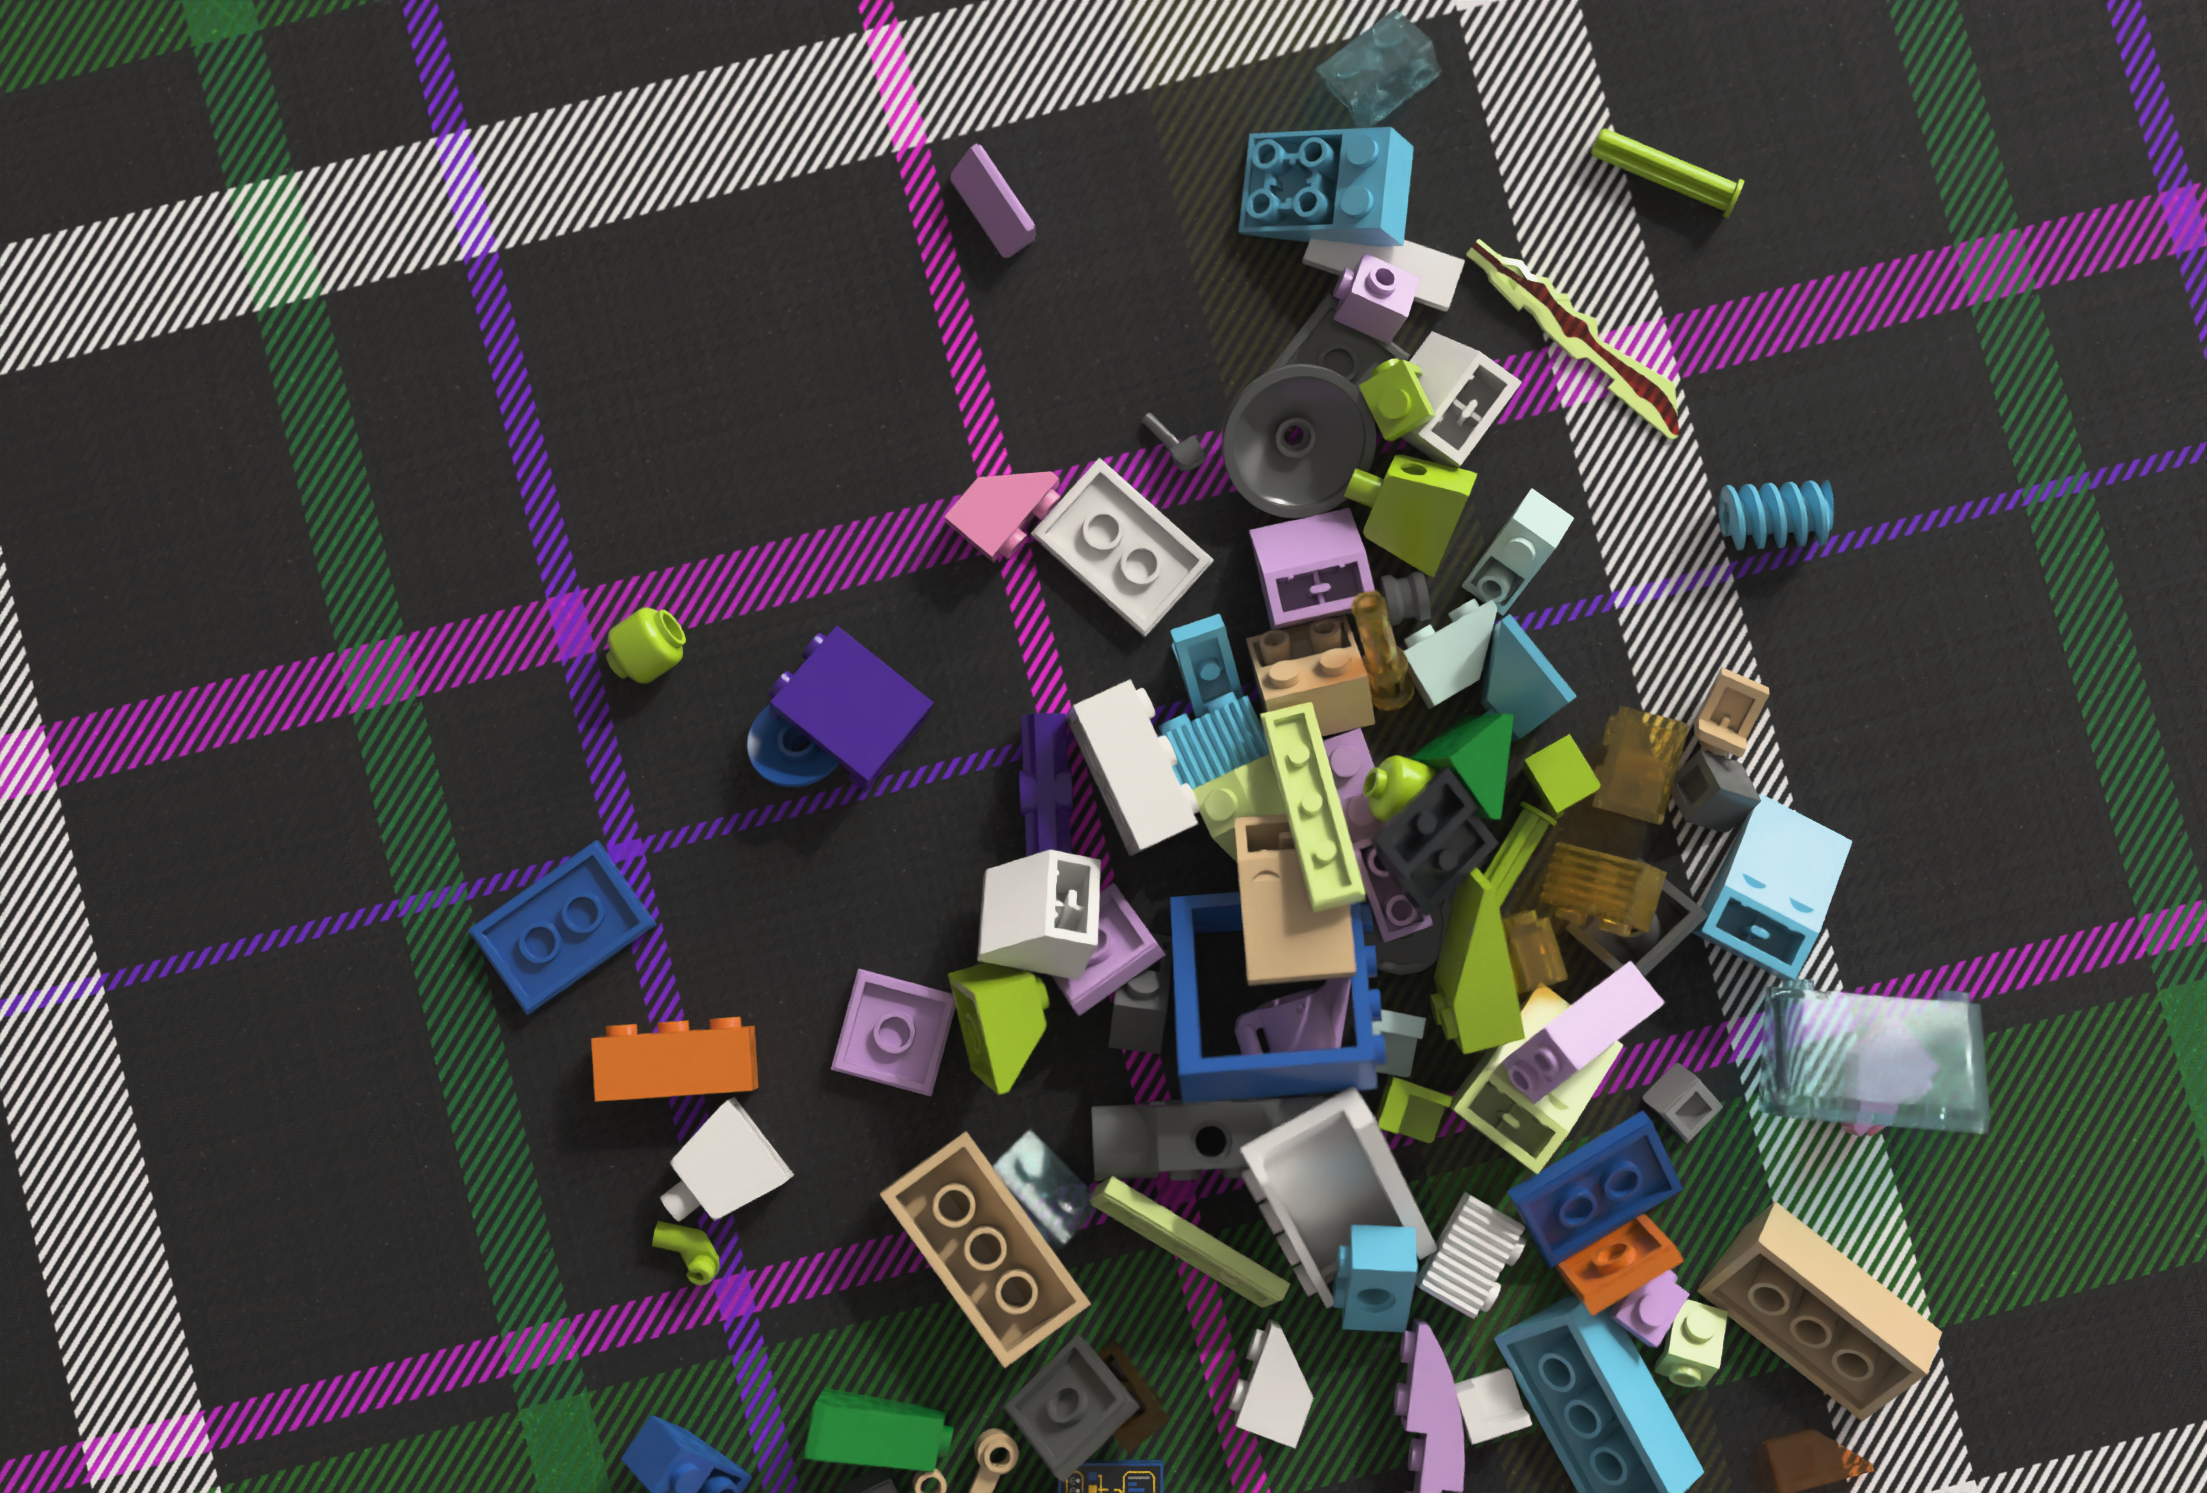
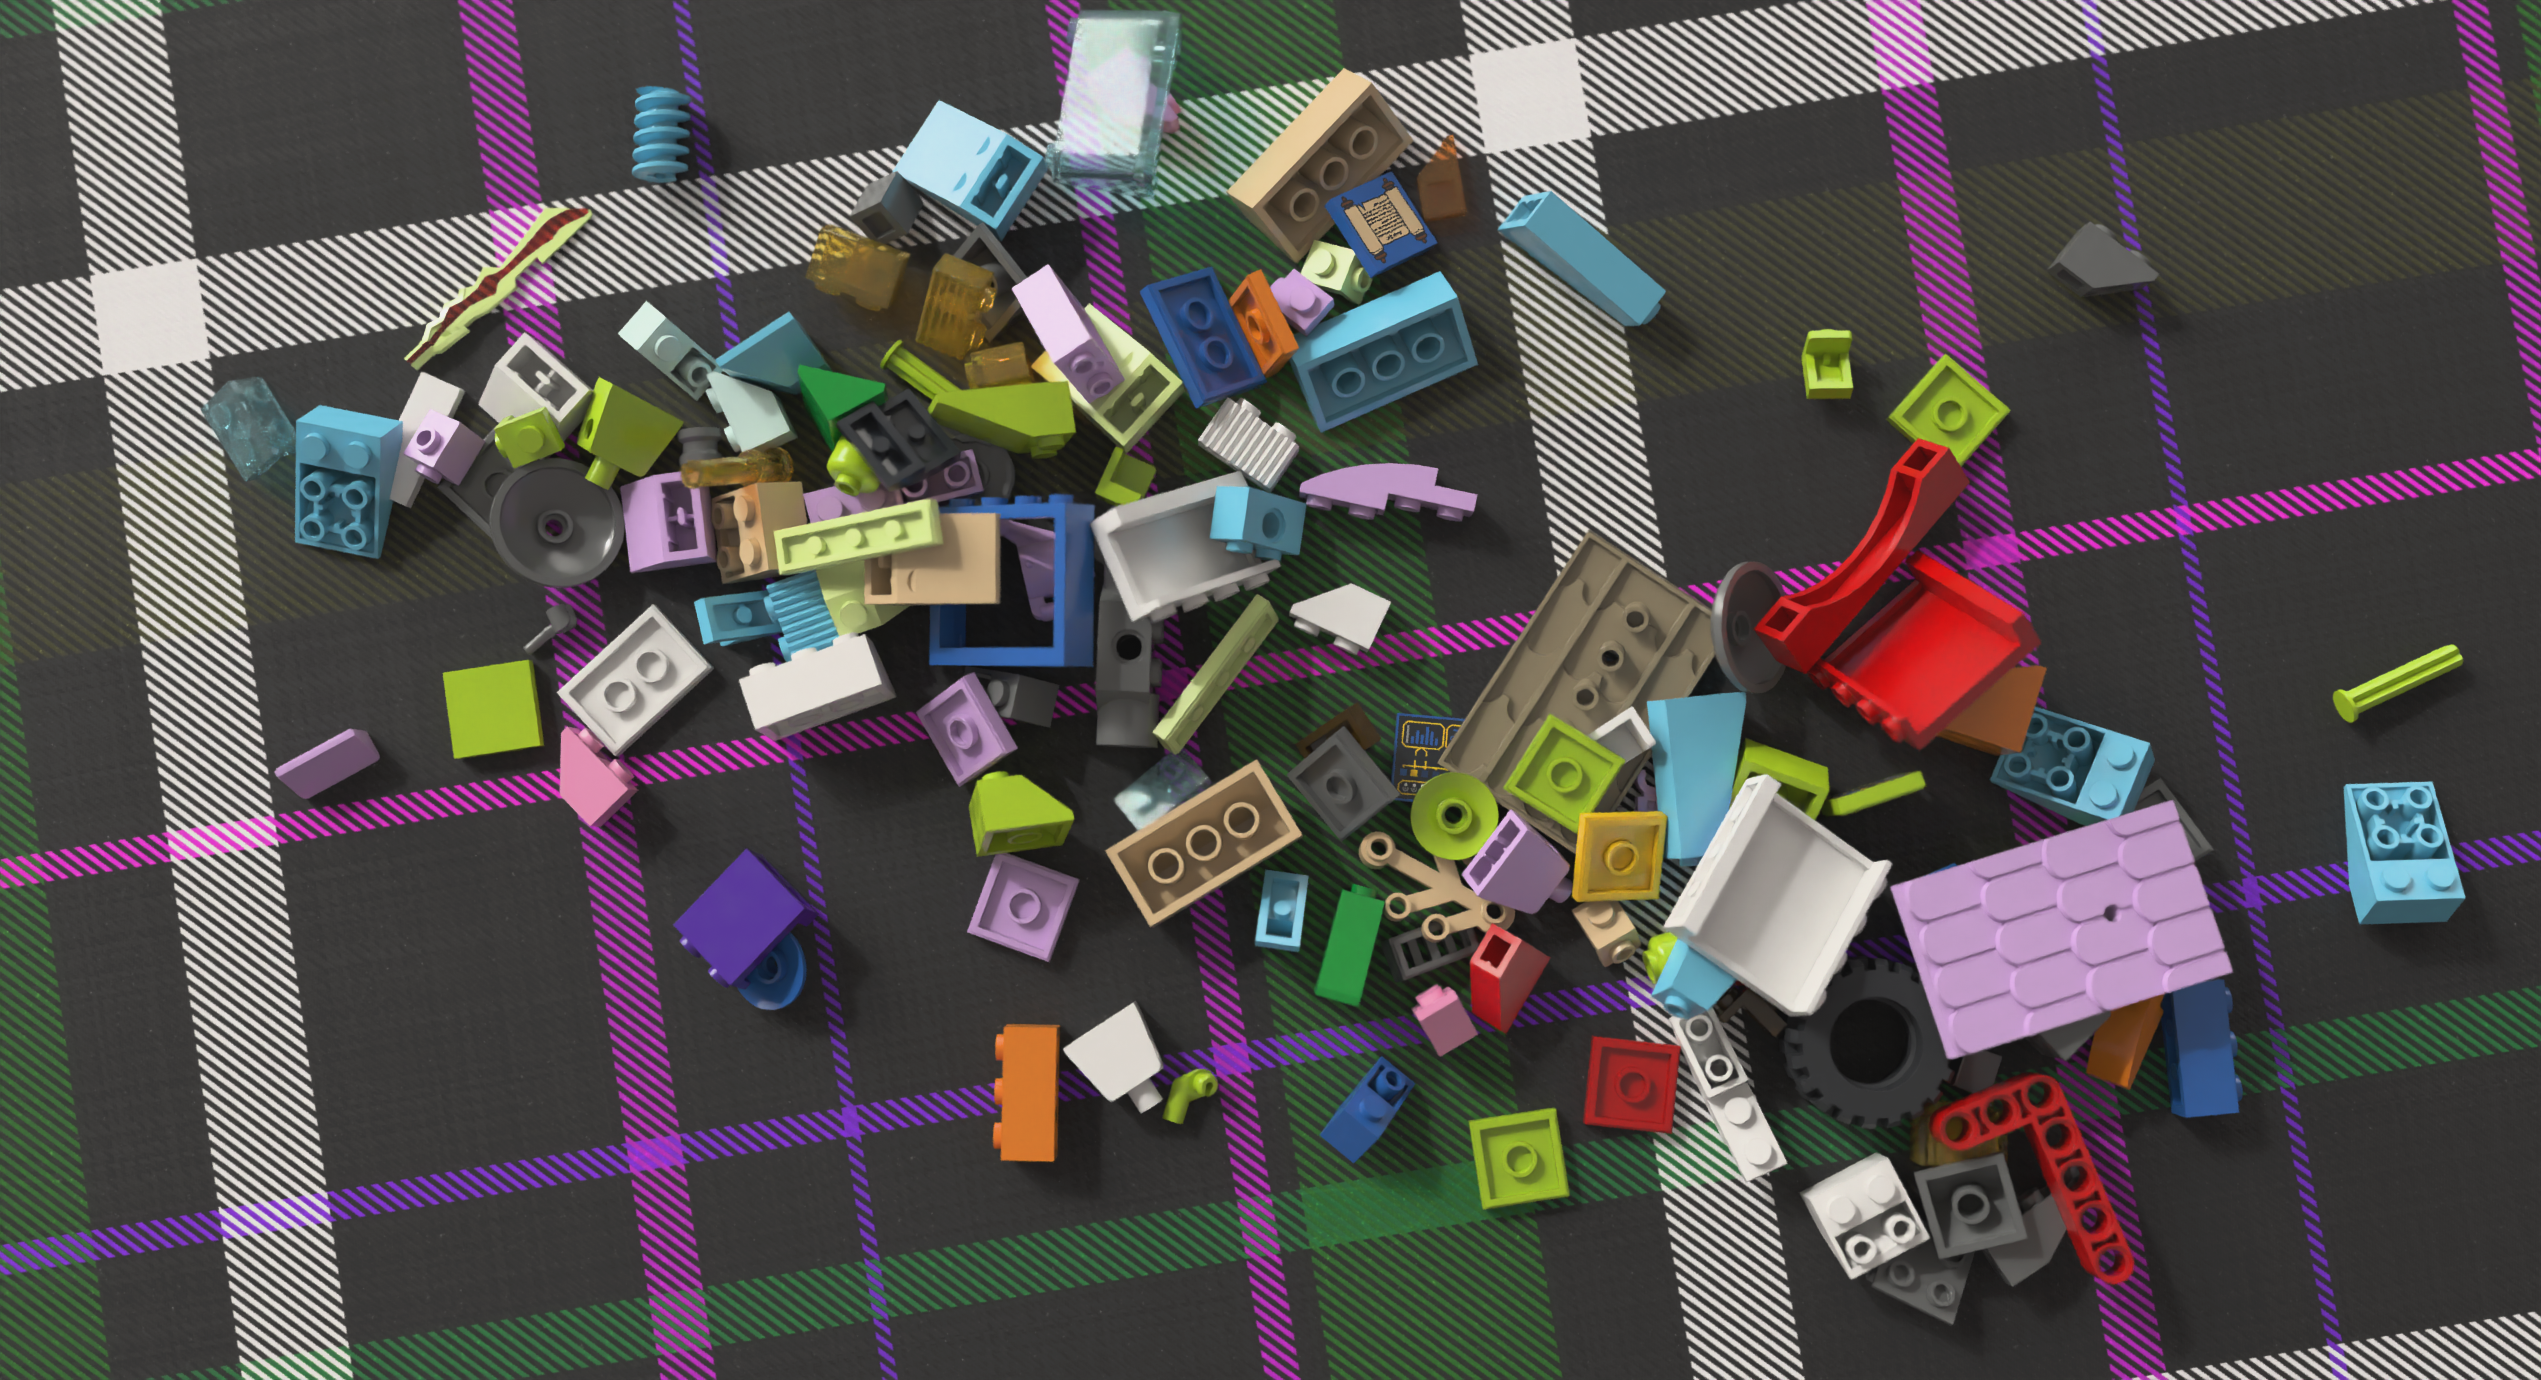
camera: 85 degrees left, 0 degrees up
(562, 927) = (909, 1179): blue tile -> none
(645, 645) = (675, 1089): lime head -> none
(912, 1345) = (1282, 910): none -> medium azure slope
(1041, 913) = (929, 771): white slope -> none
(1045, 783) = (833, 761): dark purple piece -> none
(1073, 385) = (493, 709): none -> lime tile
(1400, 1041) = (1061, 482): light aqua panel -> none
(1491, 1405) = (1373, 439): white panel -> none
(1560, 776) = (860, 333): lime panel -> none
(1667, 170) = (363, 196): lime axle -> none
(1682, 1102) = (1141, 259): light grey slope -> none
(1729, 713) = (822, 189): tan bracket -> none
(1754, 1394) = (1380, 224): none -> tile

